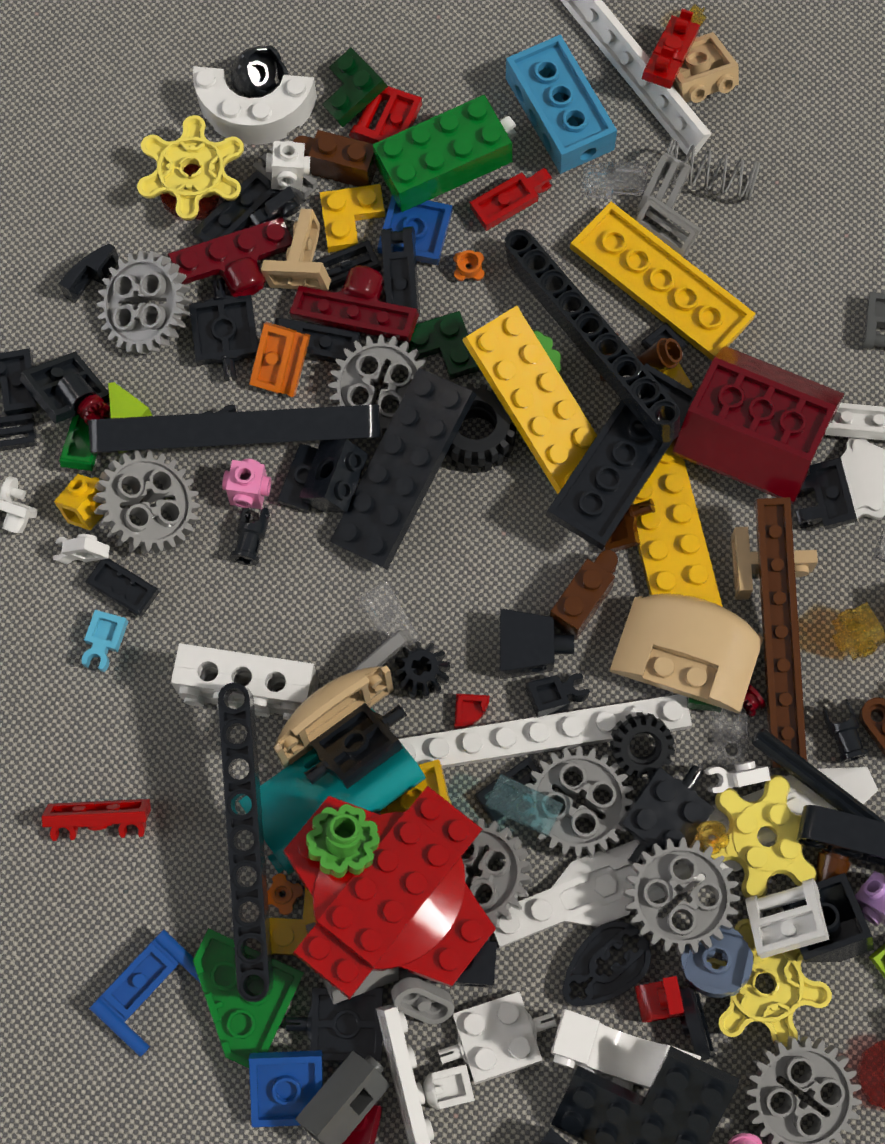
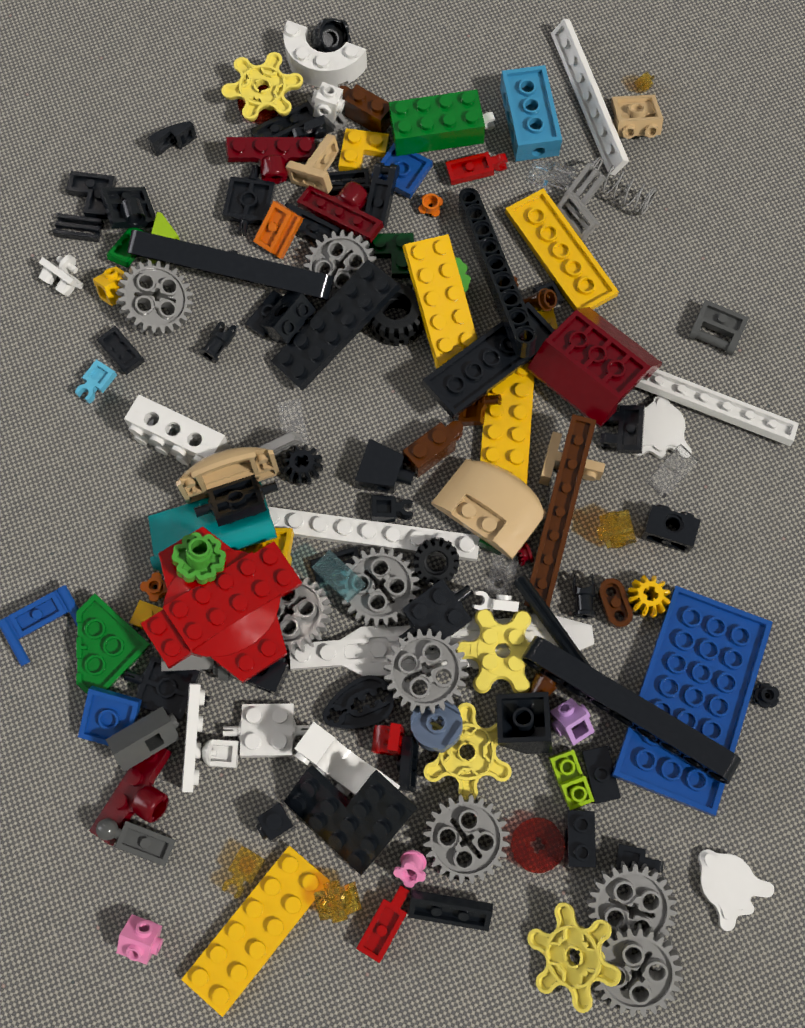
camera: 15 degrees right, 0 degrees up
(82, 548) = (101, 315): white plate -> none
(95, 402) = (143, 222): dark red bush -> none
(96, 816) = (48, 496): red plate -> none
(143, 330) = (202, 151): light grey gear -> none
(246, 483) = (227, 305): bright pink brick -> none
(255, 855) = (141, 551): black beam -> none
(359, 87) = (396, 66): dark green plate -> none
(397, 116) = (419, 86): red plate -> none
(422, 1000) = (222, 687): light grey plate -> none
(469, 709) = (327, 502): red tile -> none
(671, 50) = (620, 97): red plate -> none
(712, 828) = (467, 633): clear yellow plate -> none
(788, 928) = (495, 717): white plate -> none

